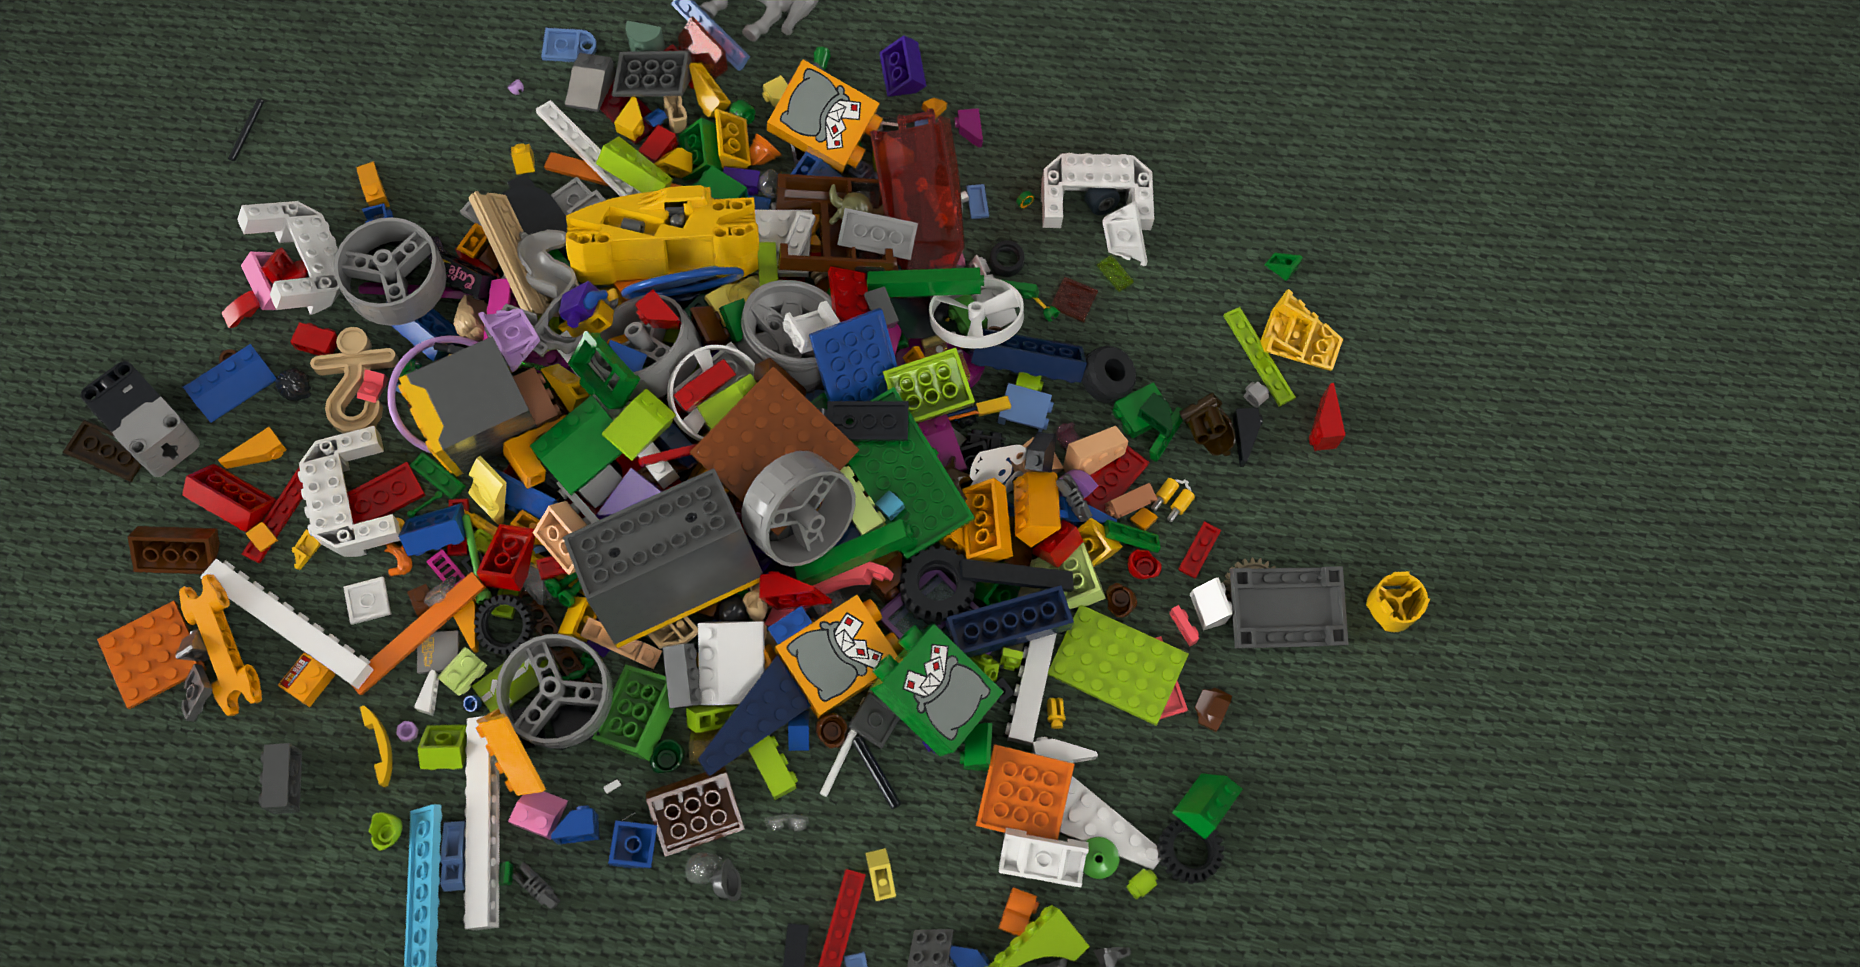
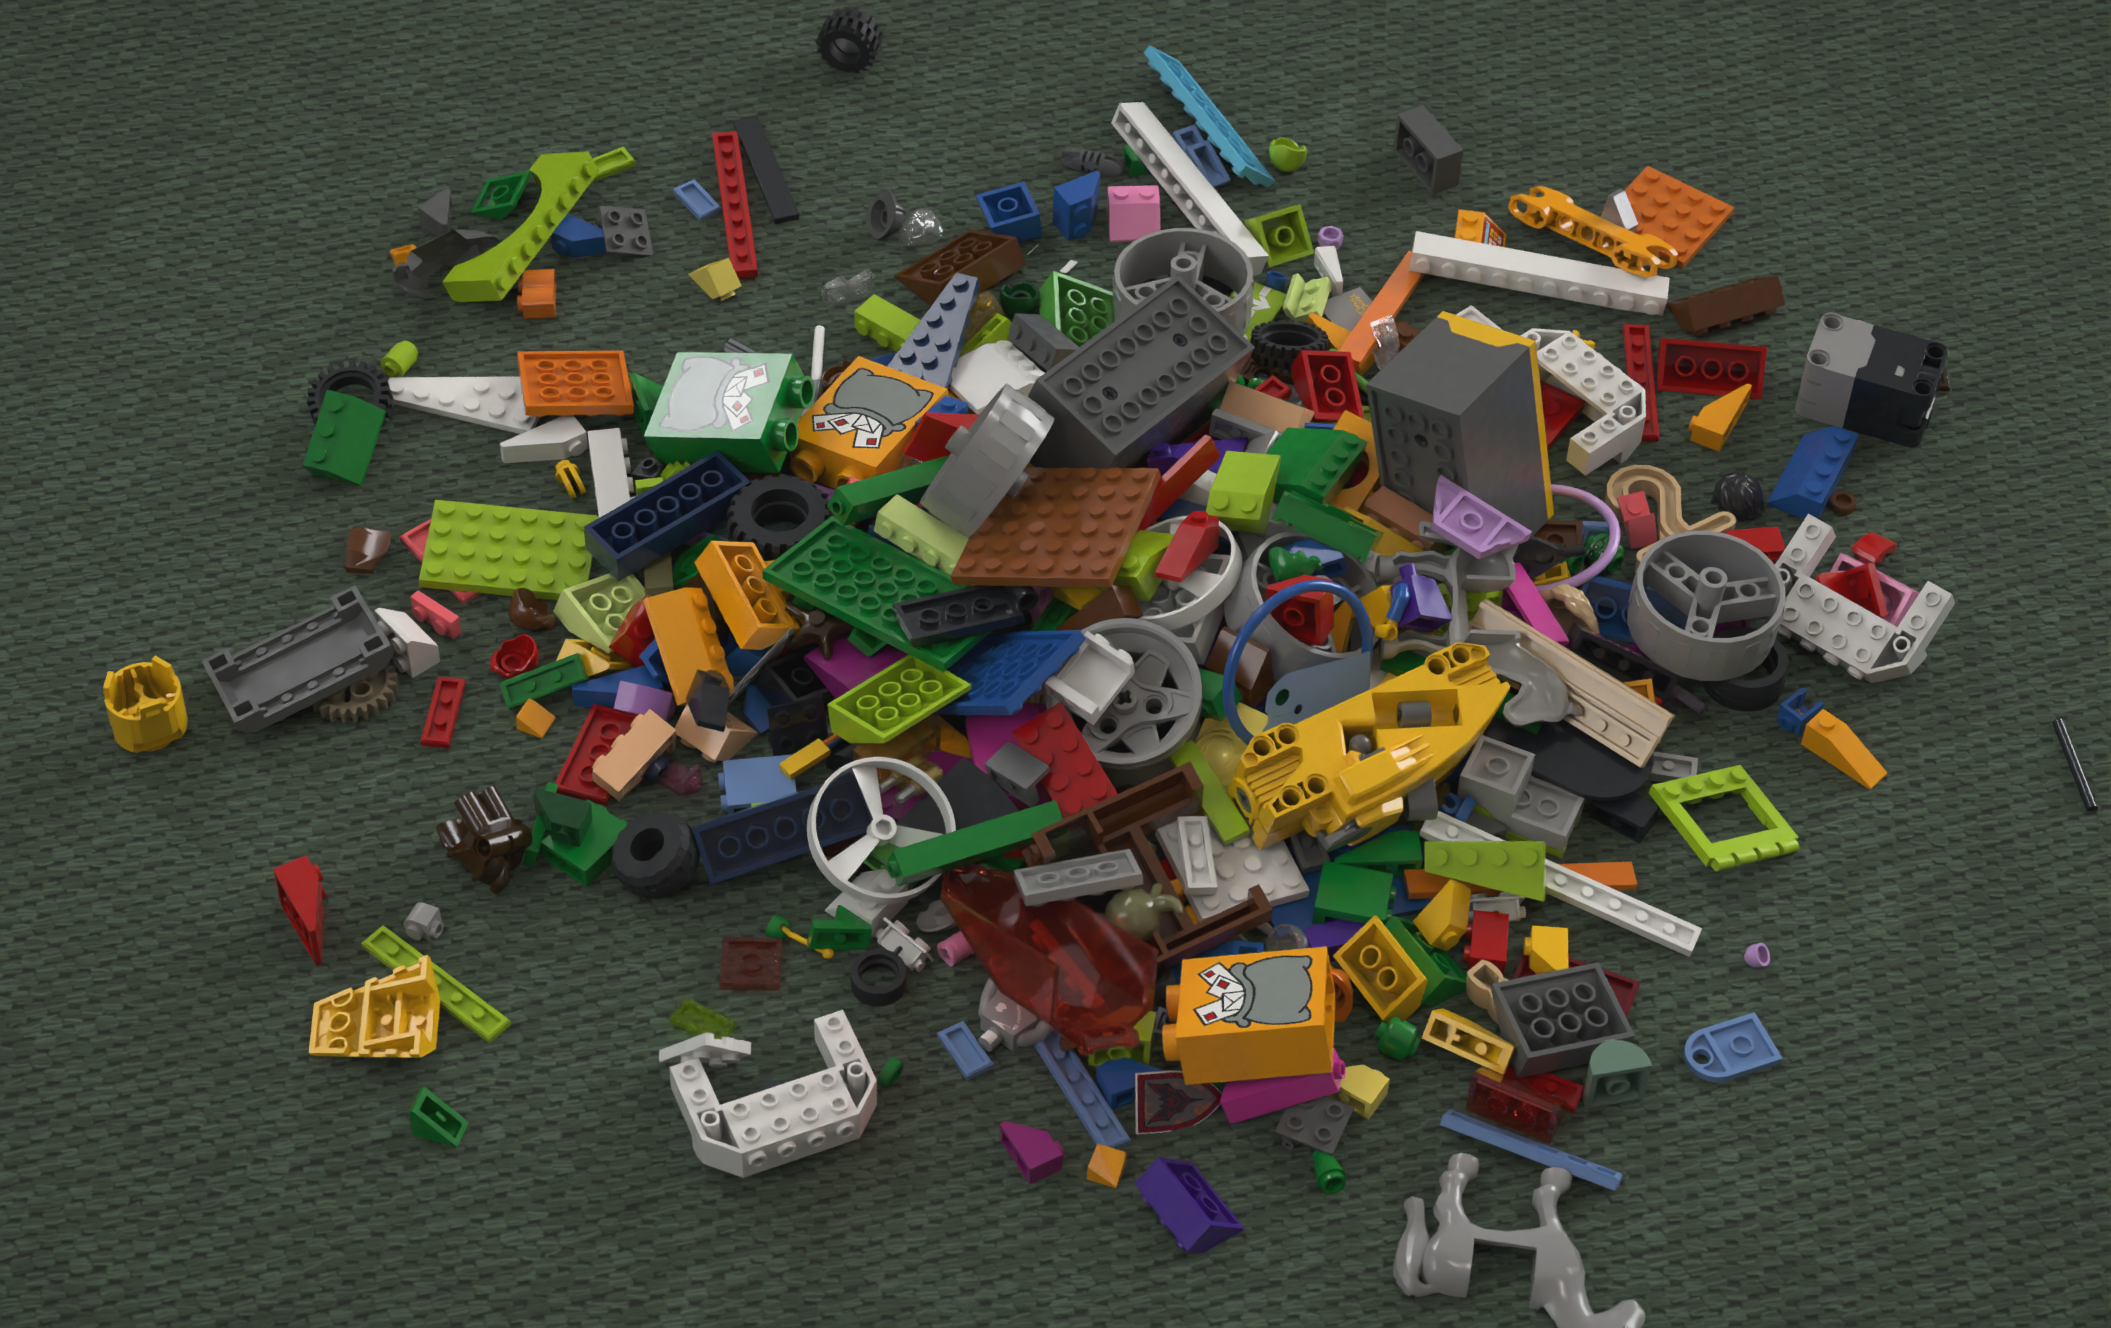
camera: 160 degrees right, 20 degrees down
(196, 693) = (1579, 188): flat silver plate -> none
(261, 536) = (1637, 340): light orange slope -> none
(384, 768) = (1373, 231): yellow slope -> none
(461, 190) = (1733, 852): none -> lime hinge
(510, 754) = (1190, 210): light orange piece -> none
(523, 158) = (1663, 846): yellow slope -> none
(590, 81) = (1652, 994): slope -> none
(646, 344) = (1291, 565): none -> green hair
(655, 117) = (1517, 967): blue plate -> none
(890, 505) = (880, 544): medium azure brick -> none
(913, 355) = (939, 757): light orange plate -> none
(1015, 575) = (677, 557): black tile -> none
(1043, 858) = (491, 341): white piece -> none
(1074, 497) = (640, 672): dark grey hinge -> none
(1110, 854) = (461, 369): bright green dish -> none
(1130, 501) = (562, 723): nougat window -> none
(1181, 502) = (513, 762): yellow piece -> none
(1246, 425) = (423, 871): black slope -> none

